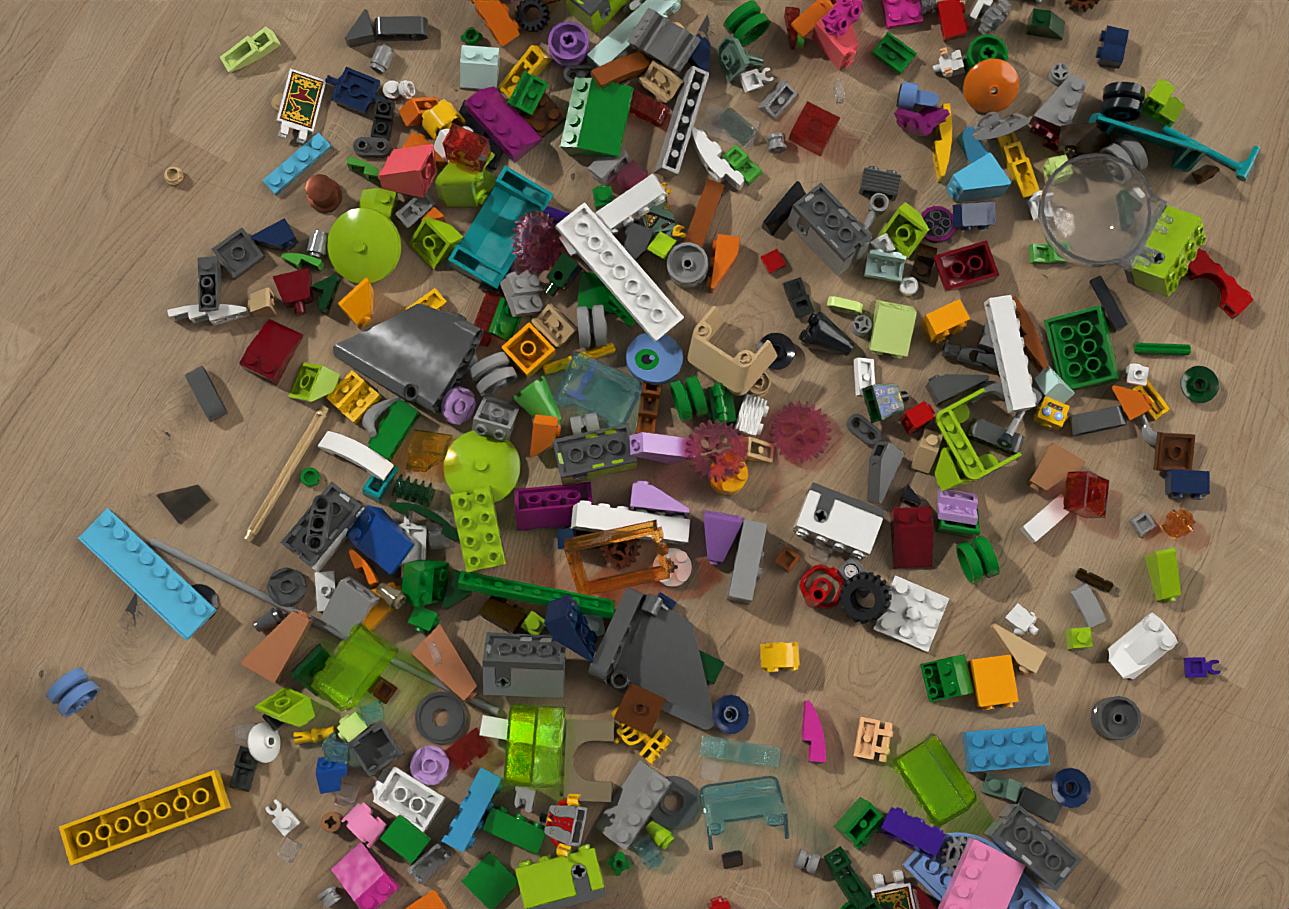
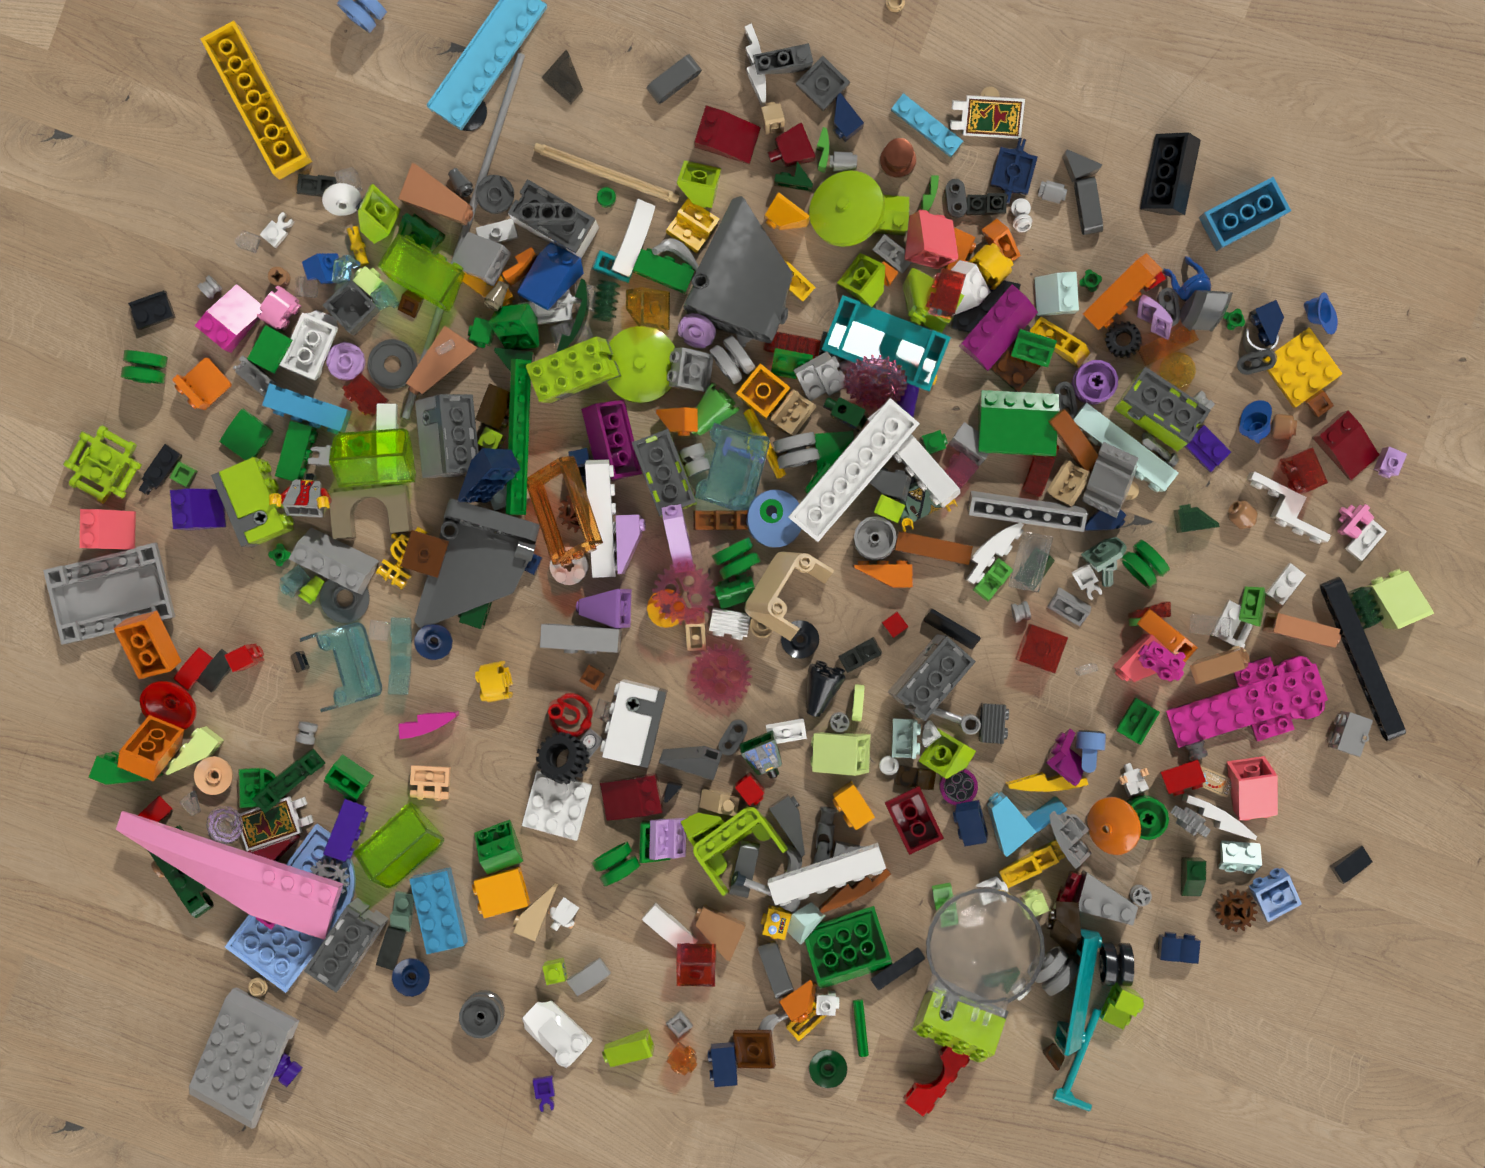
camera: 85 degrees right, 10 degrees up
(250, 50) = (1042, 54): yellowish green slope -> none
(1094, 580) = (616, 981): dark brown axle -> none

